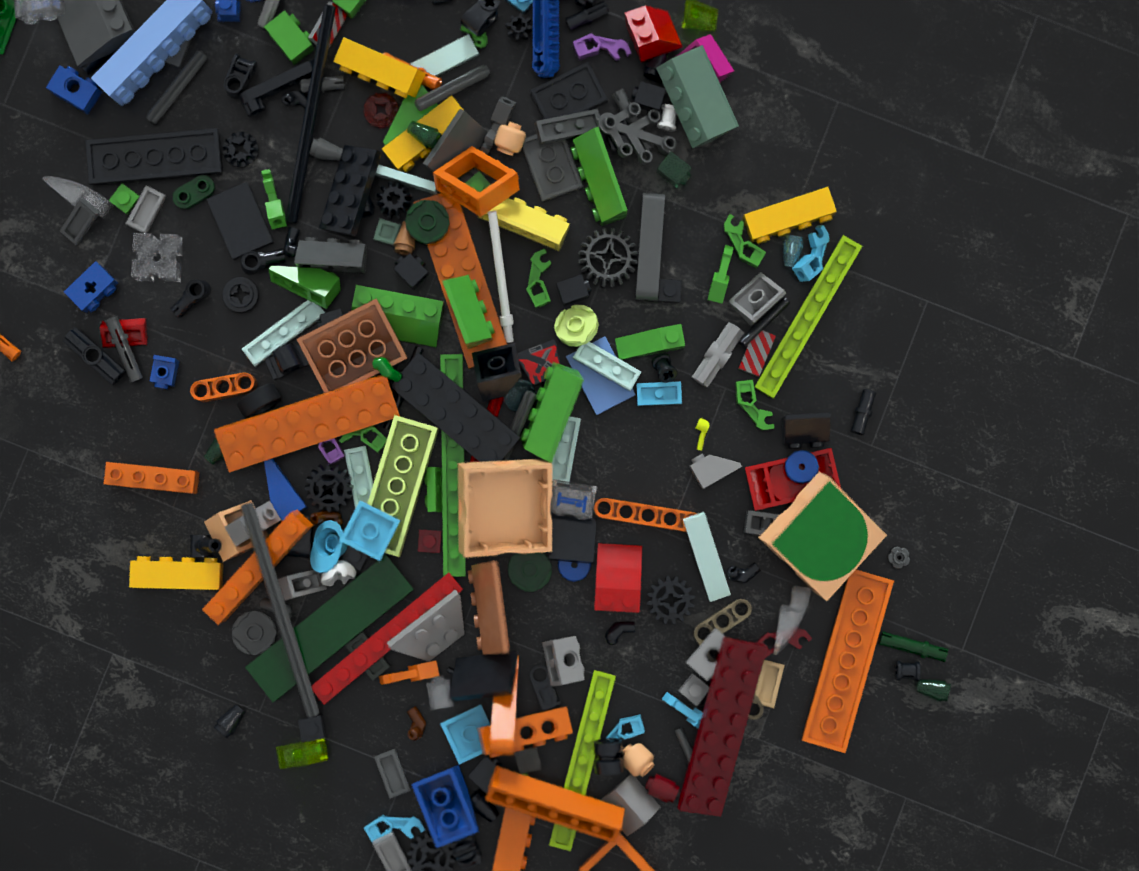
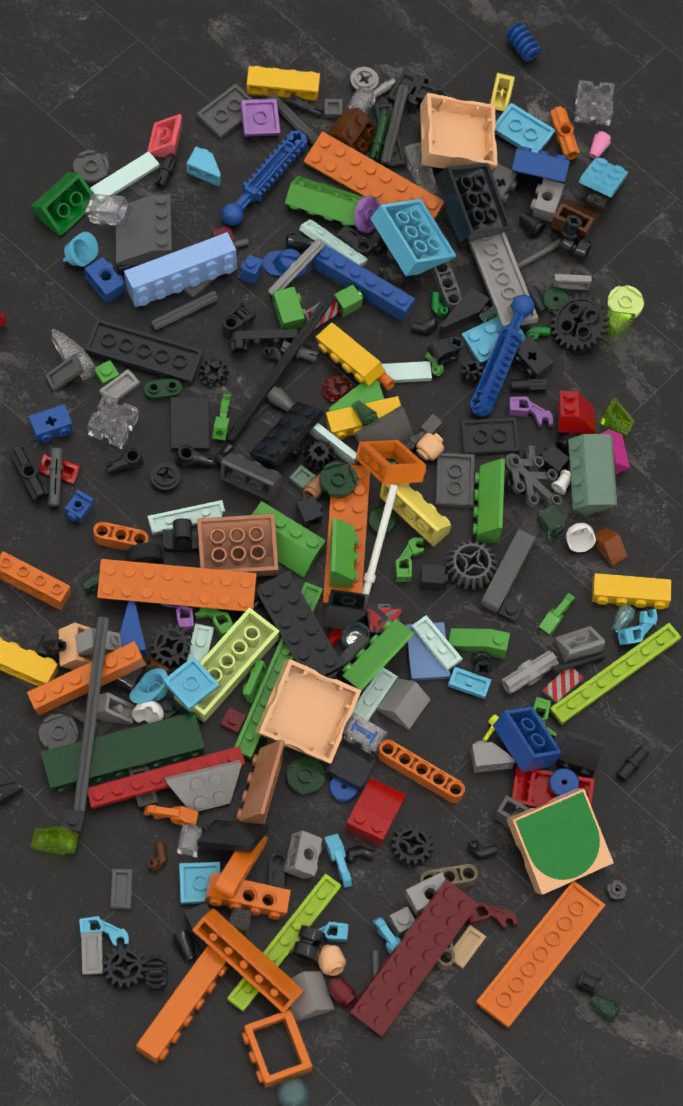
camera: 15 degrees right, 20 degrees down
(32, 64) = (81, 249): none -> medium azure piece
(310, 283) = (222, 487): bright green slope -> none
(386, 369) = (258, 569): green arm -> none
(446, 806) = (156, 925): blue slope -> none
(452, 87) = (400, 391): dark grey axle -> none
(484, 241) = (375, 517): none -> dark green piece
(566, 126) = (475, 453): dark grey plate -> none
(576, 325) = (424, 604): yellowish green tile -> none
(598, 445) = (404, 702): none -> light grey slope
(598, 645) = (336, 852): none -> medium azure piece
(706, 556) = (456, 821): light aqua tile -> none
(712, 176) = (580, 537): none -> white hair
(735, 234) = (581, 589): bright green piece -> none
(745, 170) = (610, 546): none -> dark orange slope
(745, 436) = (527, 739): none -> blue brick
(791, 617) = (507, 897): clear slope -> none
(908, 645) = (609, 971): dark green pin -> none

